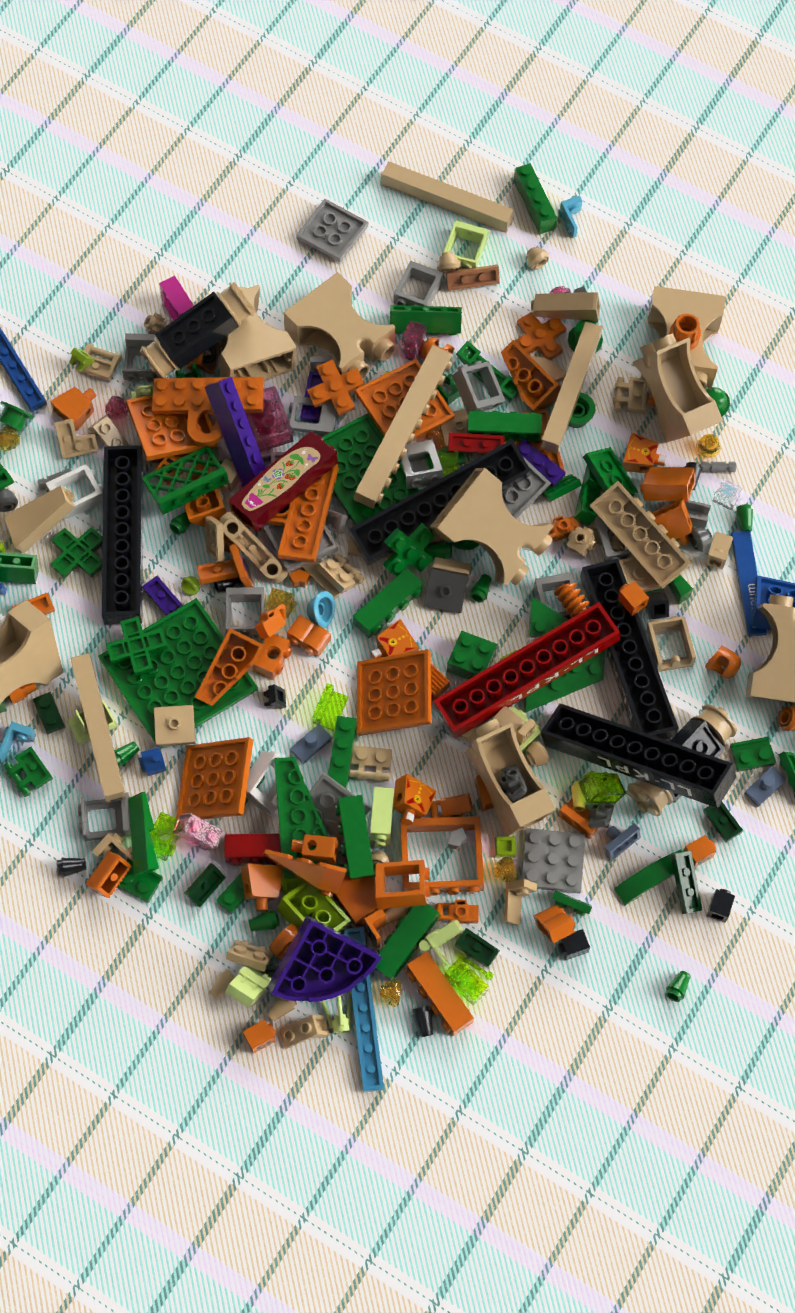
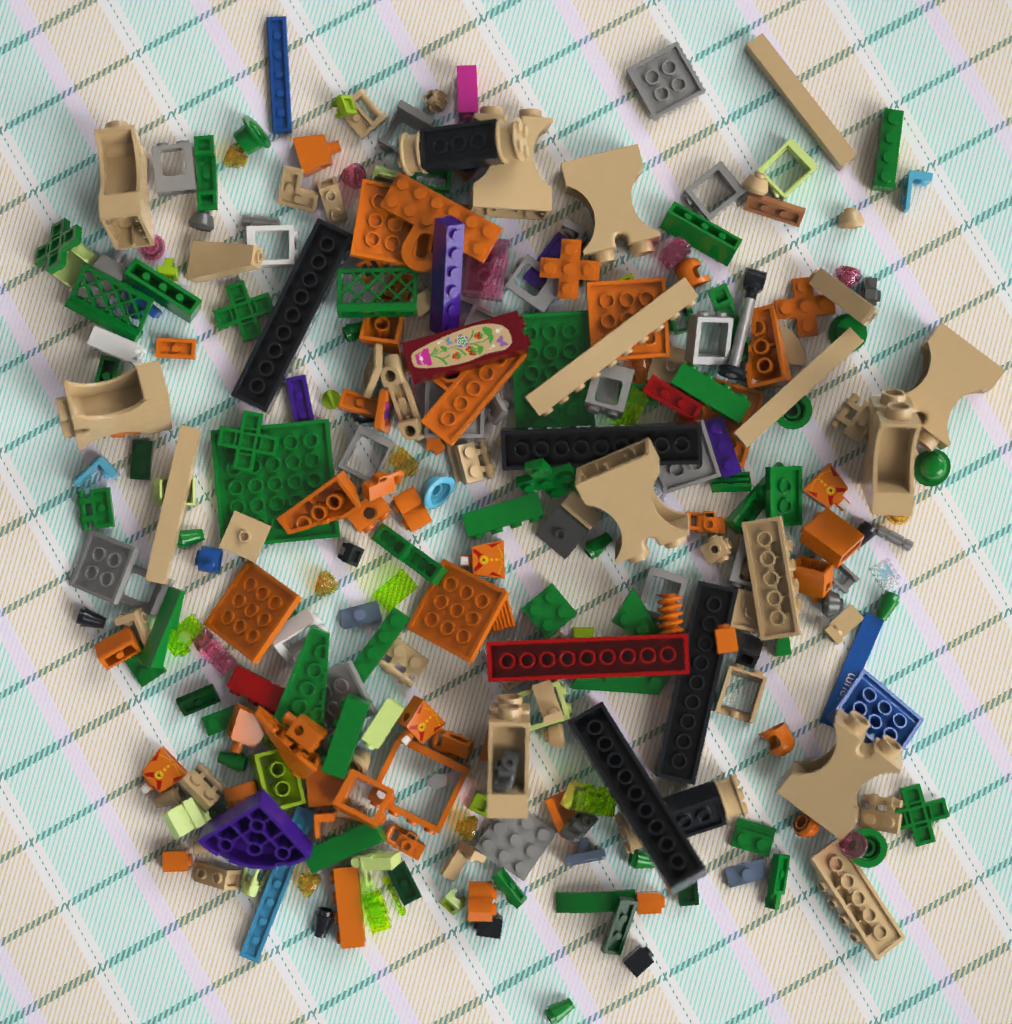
camera: 30 degrees right, 20 degrees up
(60, 812) = (104, 567): none -> light grey plate
(205, 964) = (162, 772): none -> orange torso
(267, 731) = (326, 584): none -> clear yellow cone
(326, 671) = (409, 554): none -> green slope
(511, 400) = (753, 285): none -> piece
(529, 942) = (452, 903): none -> lime tile
(671, 820) = (639, 860): none -> green cone
(686, 327) = (947, 390): orange piece -> none

